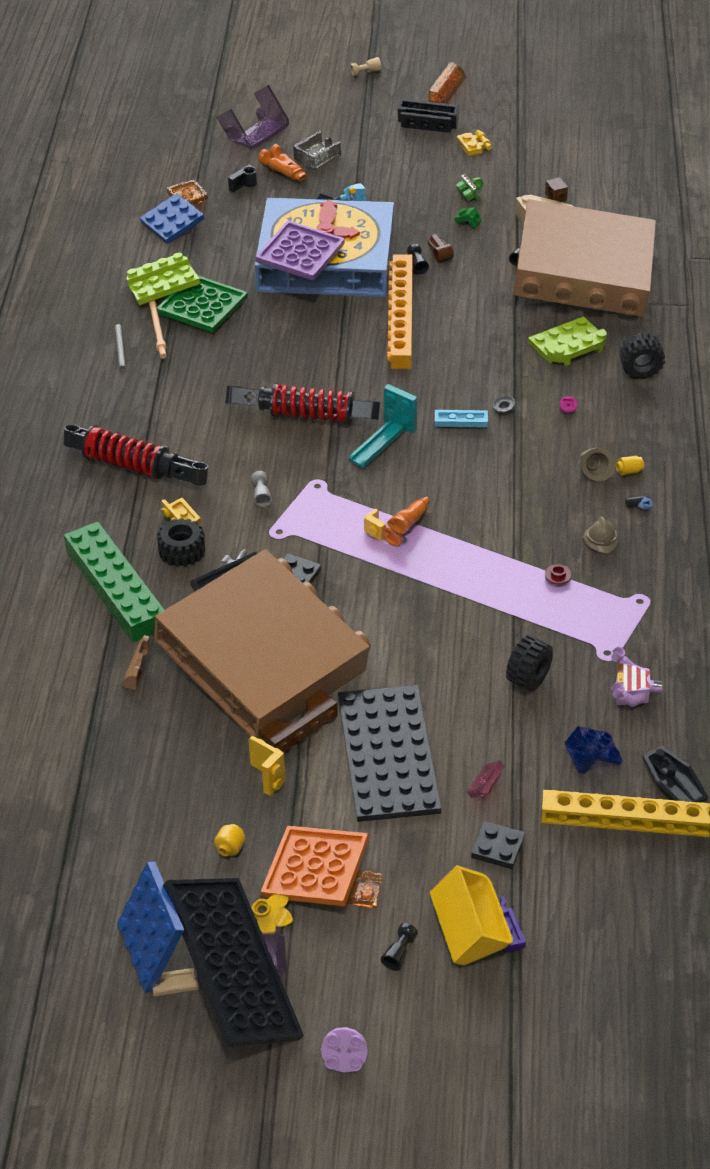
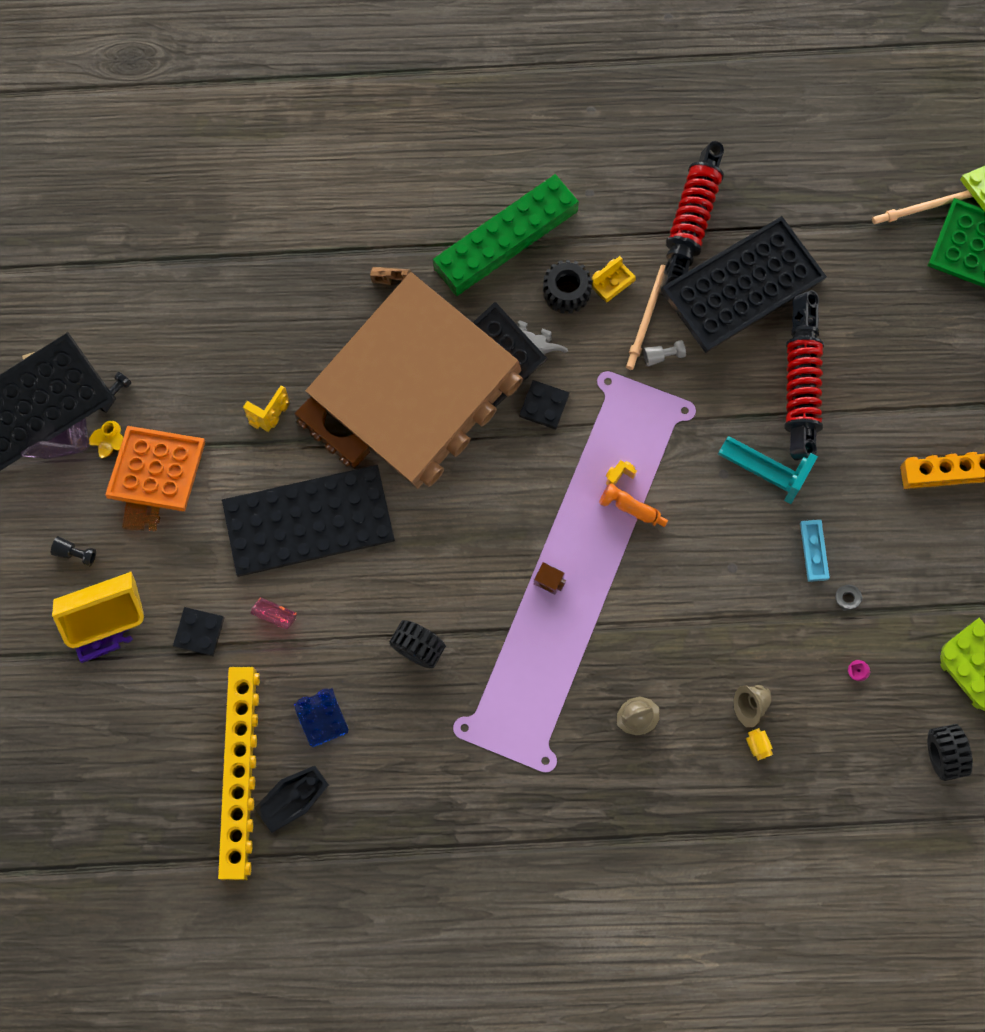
camera: 85 degrees right, 30 degrees up
(120, 348) = (884, 174): light grey piece -> none
(150, 927) = (33, 345): blue plate -> none
(209, 428) = (743, 284): none -> black plate
(229, 840) = (183, 391): yellow head -> none
(252, 508) = (635, 350): none -> light nougat bar
(470, 578) = (549, 578): none -> reddish brown brick
(558, 574) = (570, 671): dark red piece -> none
(632, 681) = (411, 753): torso -> none
(641, 502) = (701, 758): arm -> none

